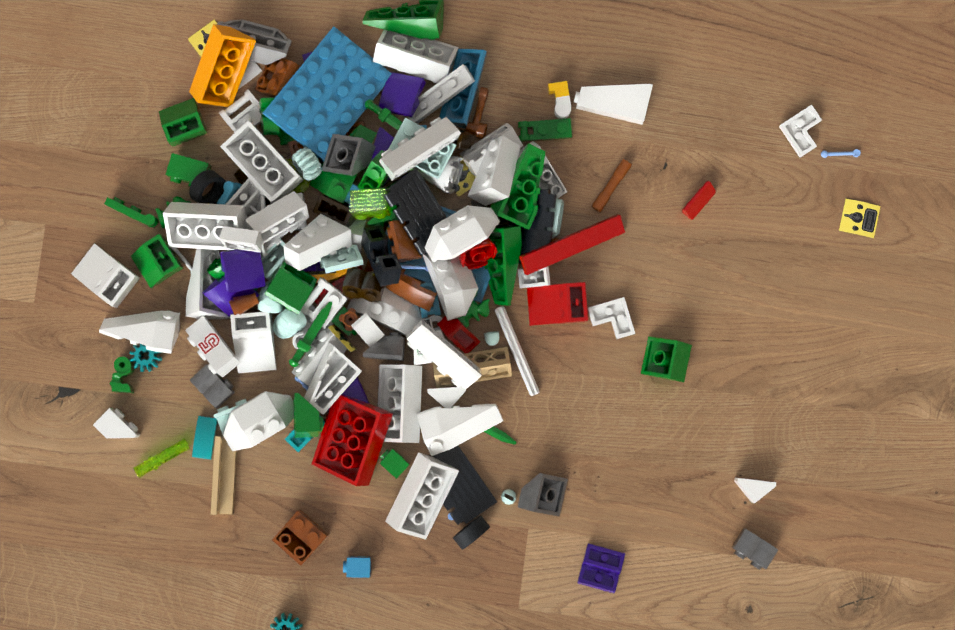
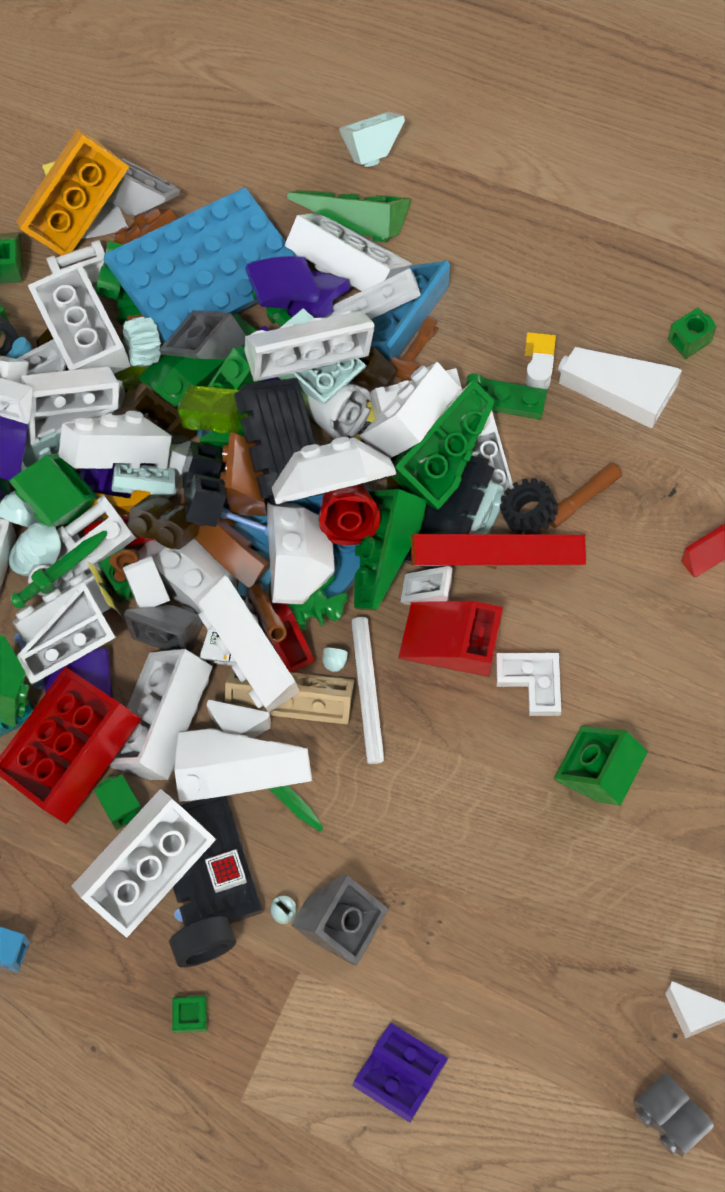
camera: 20 degrees right, 20 degrees down
(382, 94) = (282, 280): none -> dark purple slope
(452, 336) = (270, 620): none -> dark orange piece
(470, 487) = (226, 871): none -> tile
(475, 571) = (189, 1014): none -> green tile
(574, 198) = (525, 494): none -> black tyre
(648, 58) = (687, 342): none -> green brick

